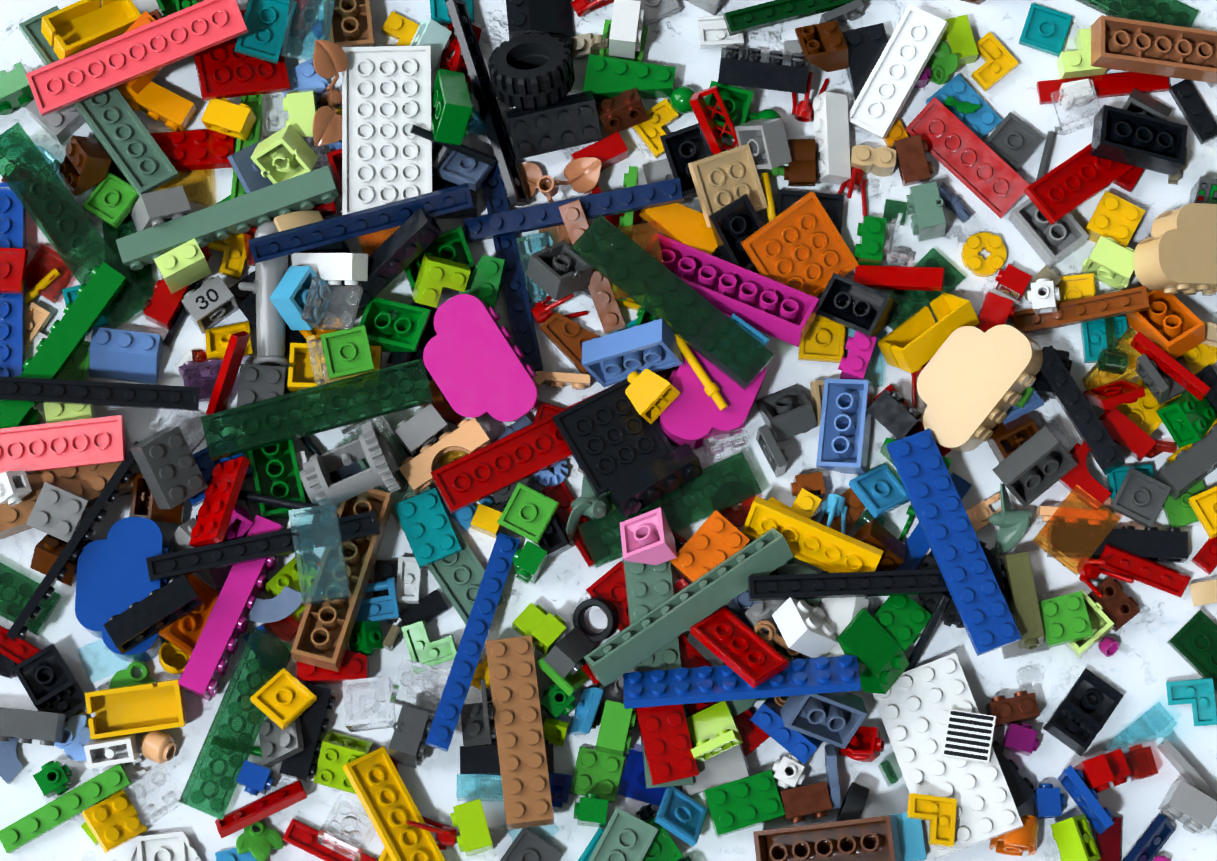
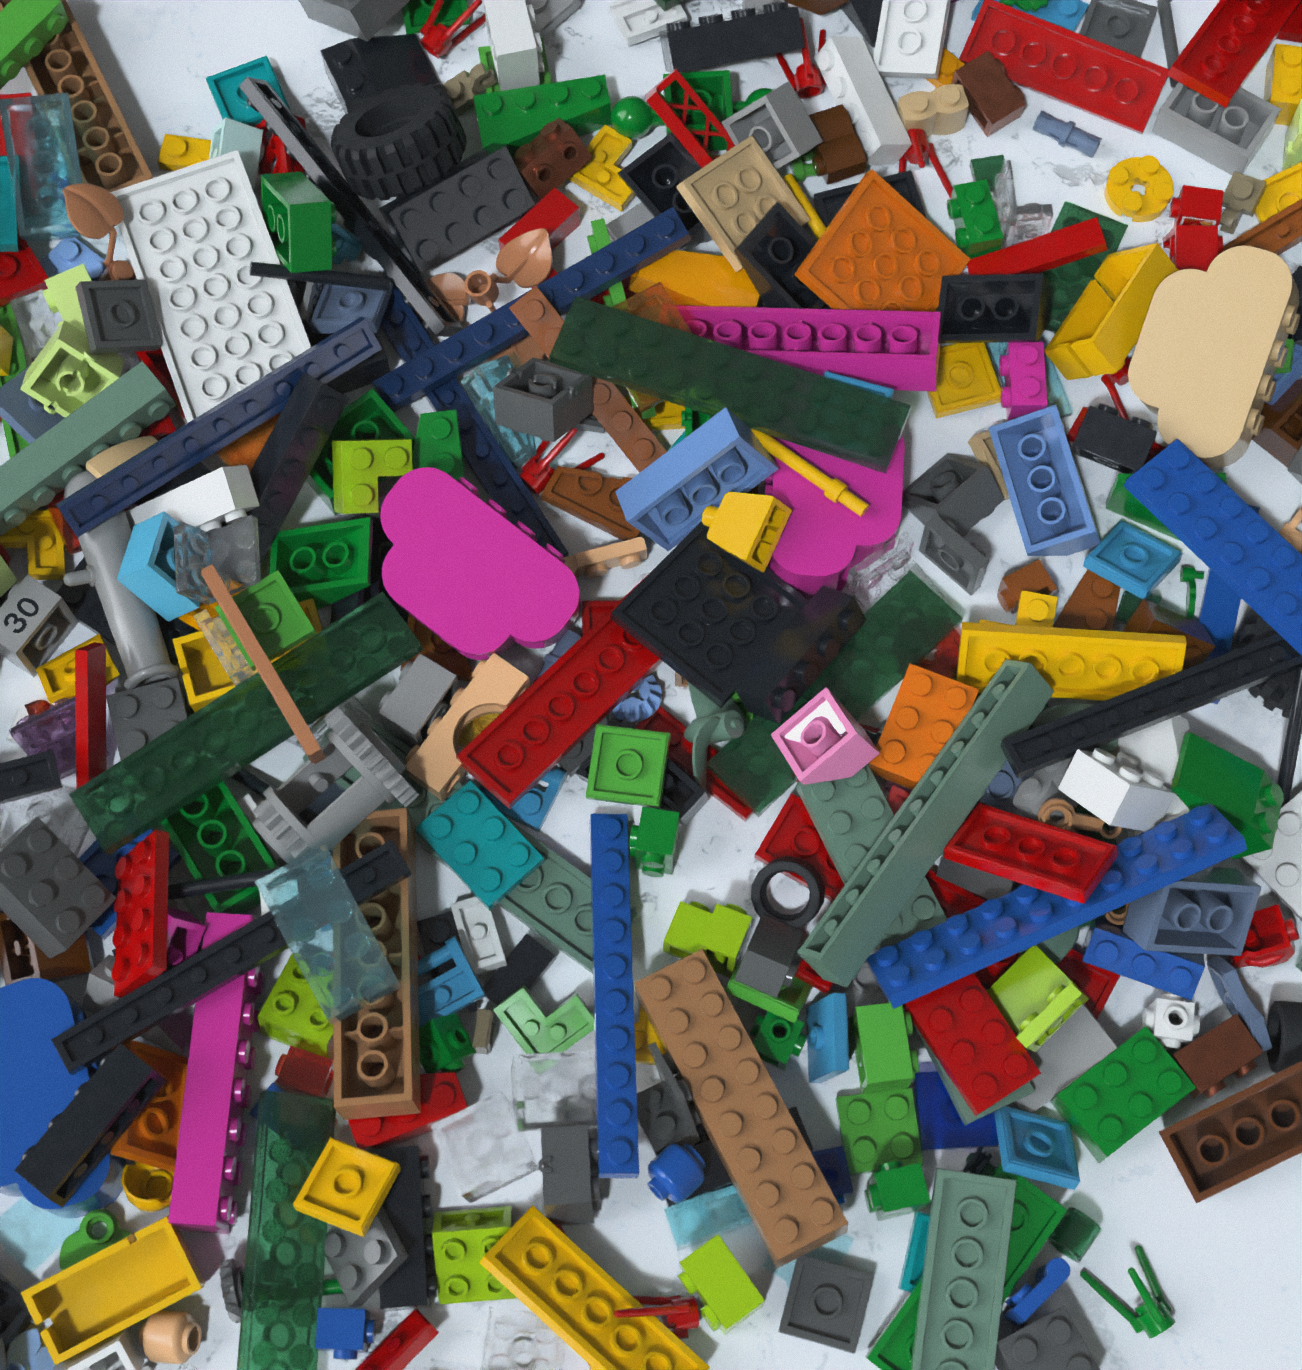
camera: 15 degrees left, 5 degrees down
(201, 731) = (232, 1288): none -> dark grey gear
(276, 608) = (288, 1047): sand blue tile -> none
(323, 132) = (118, 316): none -> dark grey plate
(336, 380) = (263, 664): none -> nougat tile
(470, 756) = (676, 1173): none -> blue head
(486, 521) = (566, 803): yellow panel -> none
(555, 731) = (792, 1085): lime plate -> none
(834, 507) = (1078, 605): medium azure plant -> none
(902, 619) = (1246, 729): green brick -> none
(926, 211) = (1039, 153): sand green brick -> none
(1044, 296) = (1255, 209): white brick -> none

